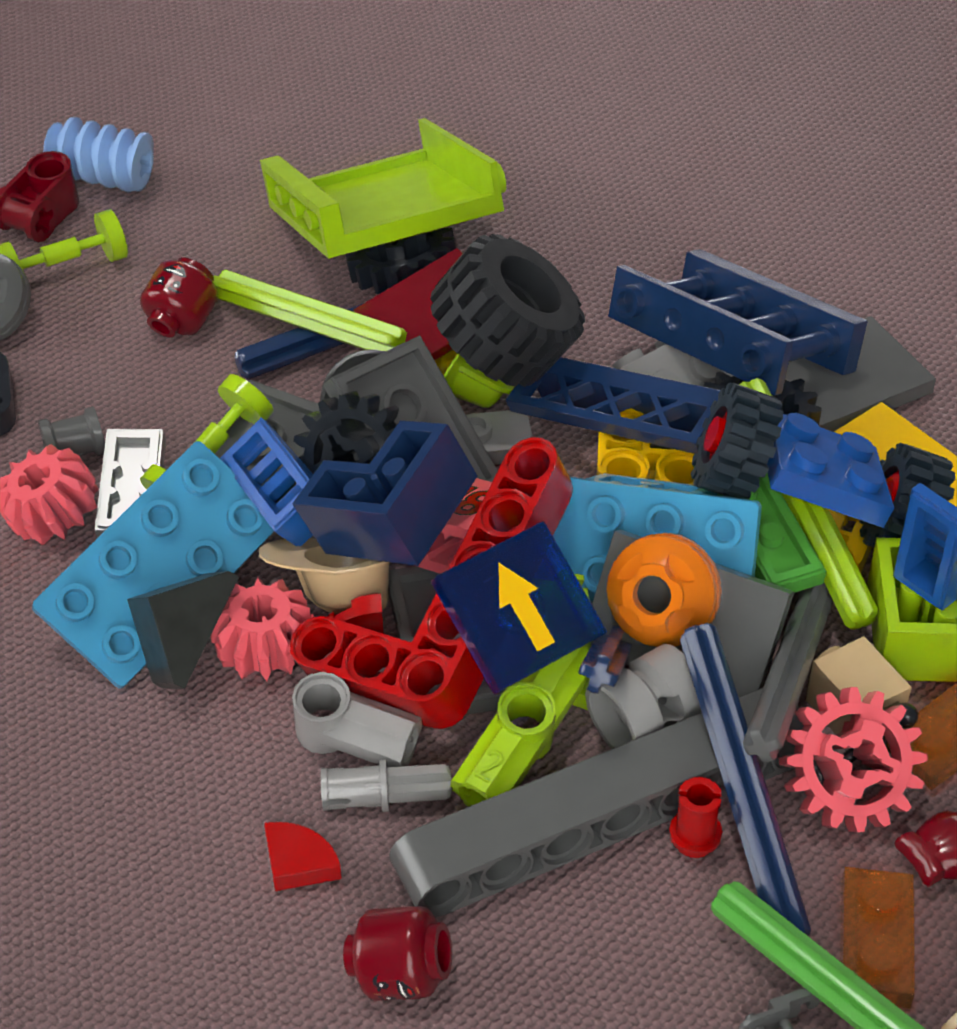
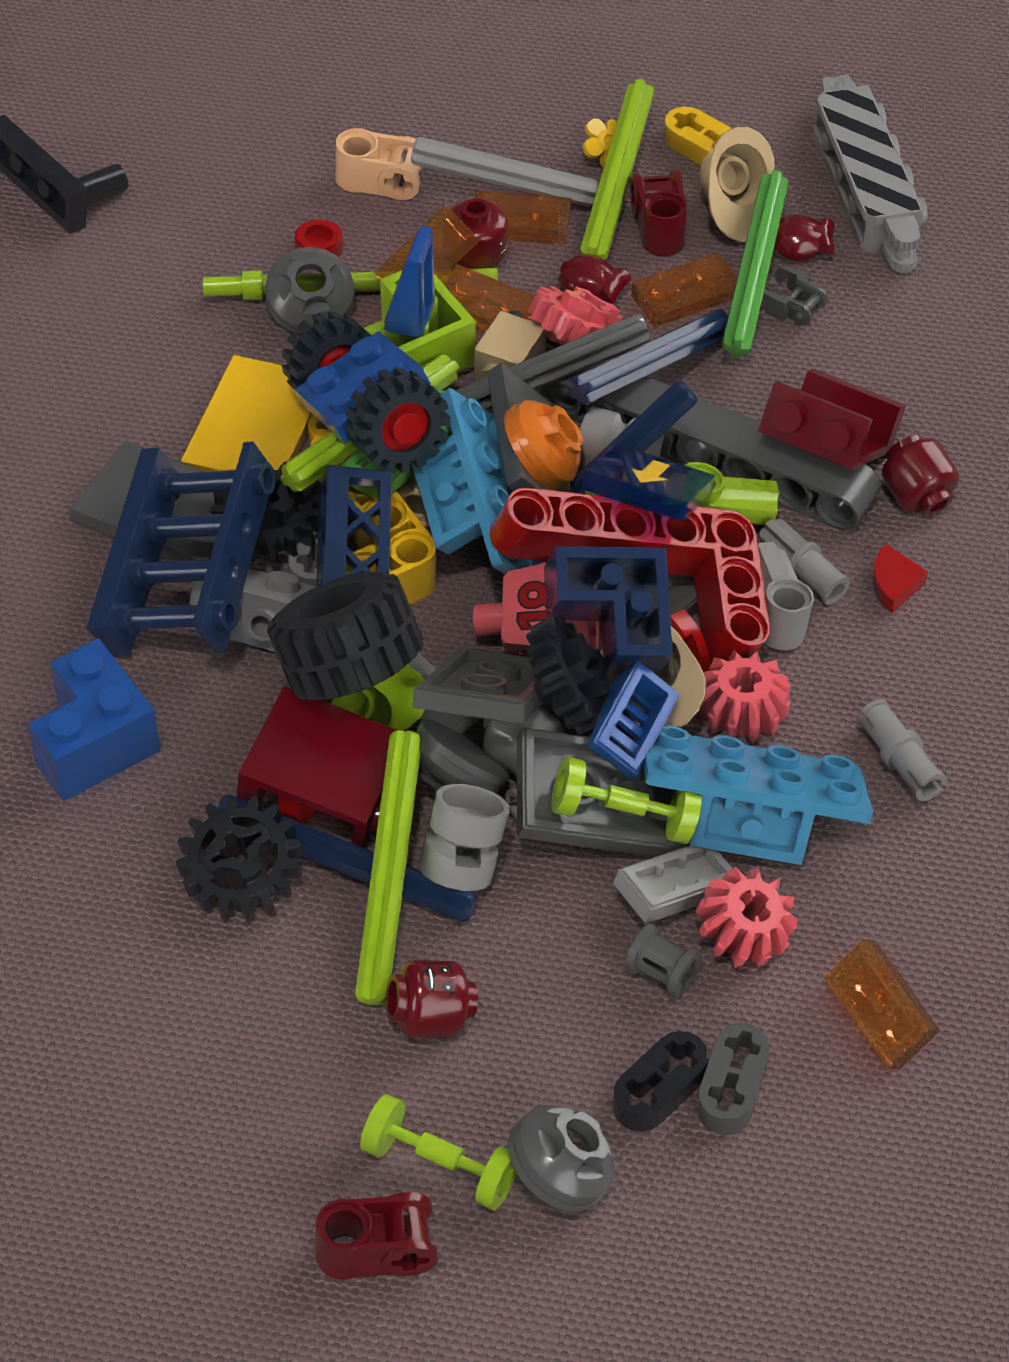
camera: 125 degrees left, 5 degrees up
(96, 714) = (902, 750): none -> light grey pin
(103, 153) = (268, 1218): light blue piece -> none
(178, 623) = (791, 718): pearl dark grey slope -> none
(287, 352) = (463, 837): none -> light grey wheel
(389, 196) = (175, 899): lime panel -> none
(515, 881) = (832, 419): none -> dark red panel
(611, 235) = (99, 724): none -> blue brick
(696, 825) = (693, 373): red pin -> none

